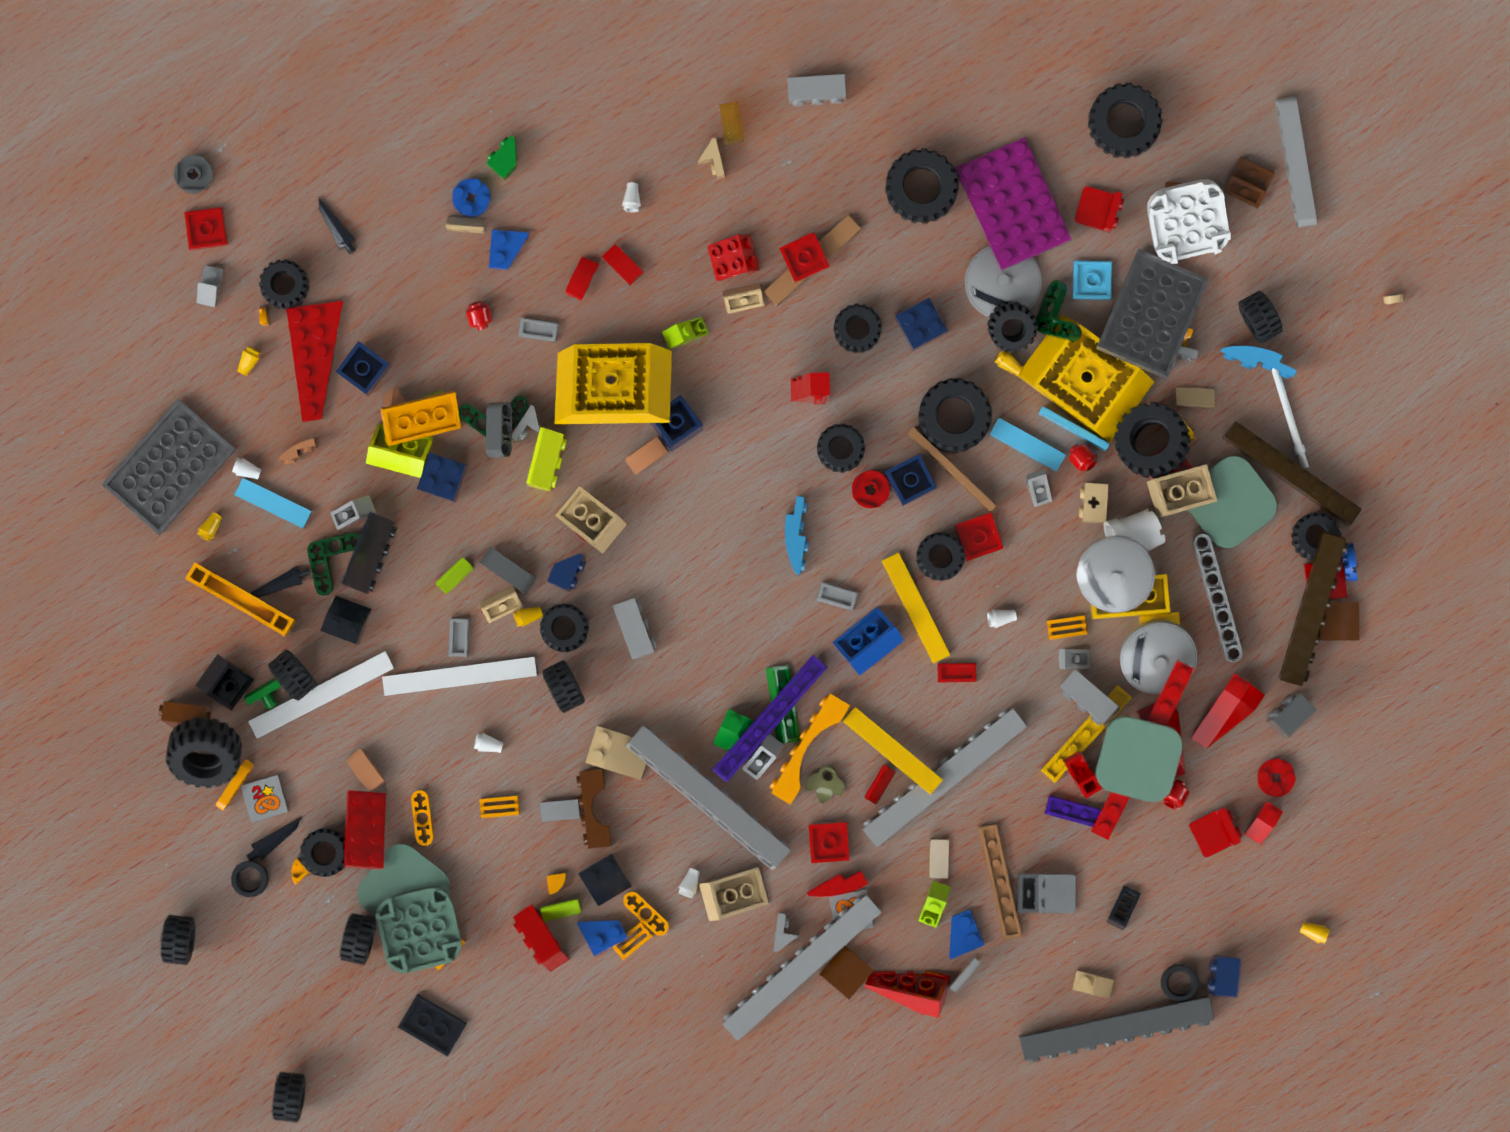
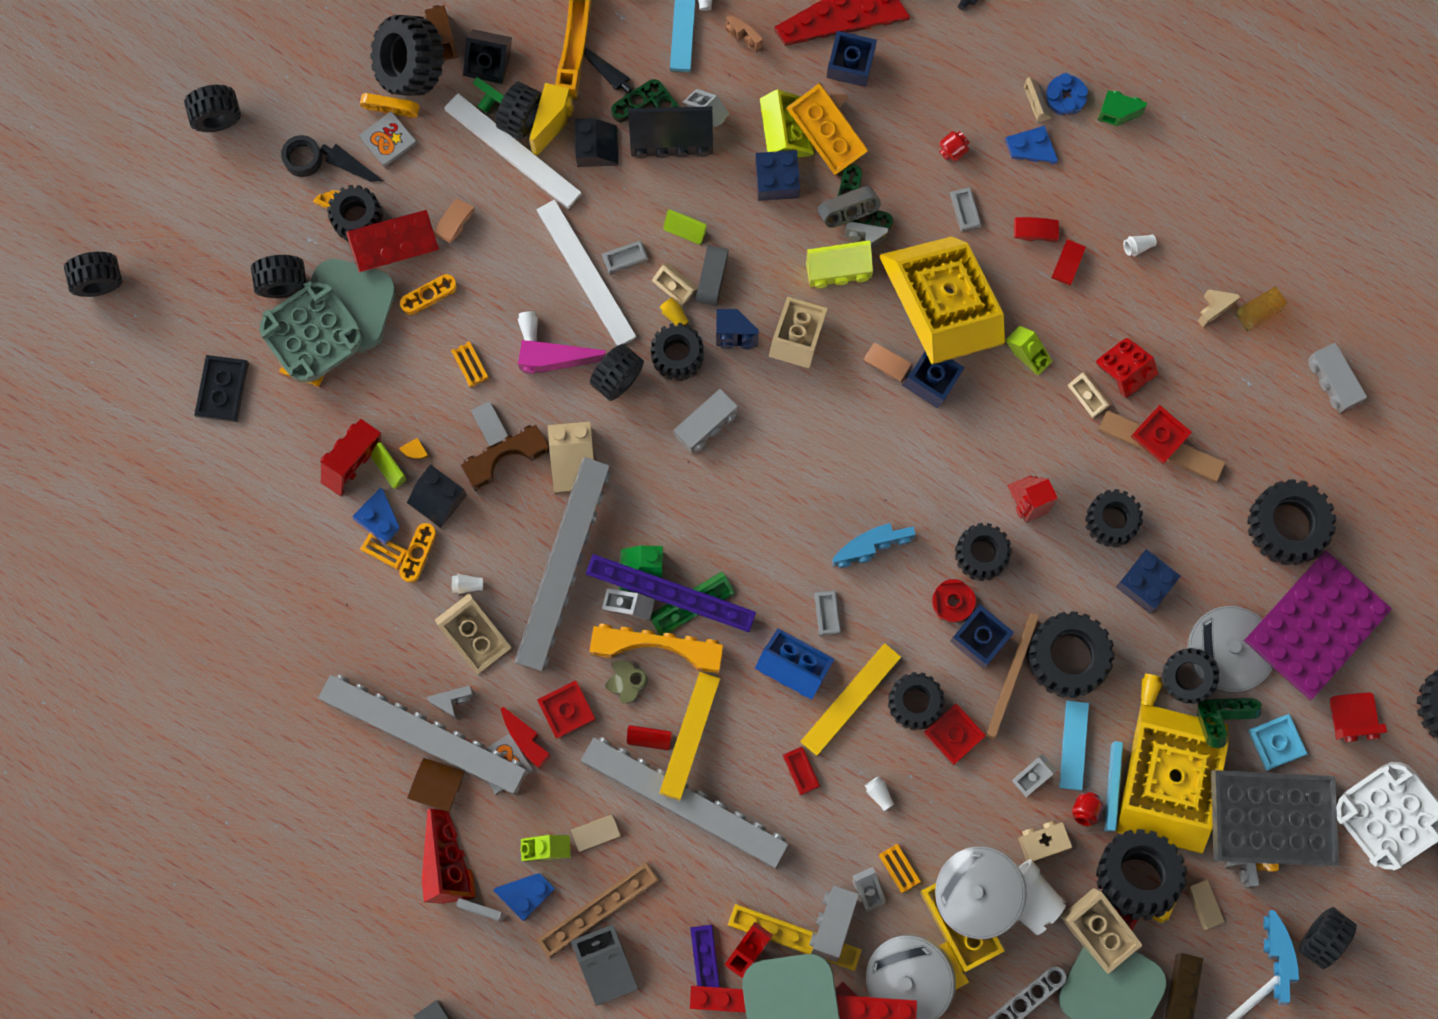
camera: 65 degrees right, 10 degrees down
(305, 646) = (551, 116): none -> yellow slope
(521, 740) = (547, 356): none -> dark pink slope

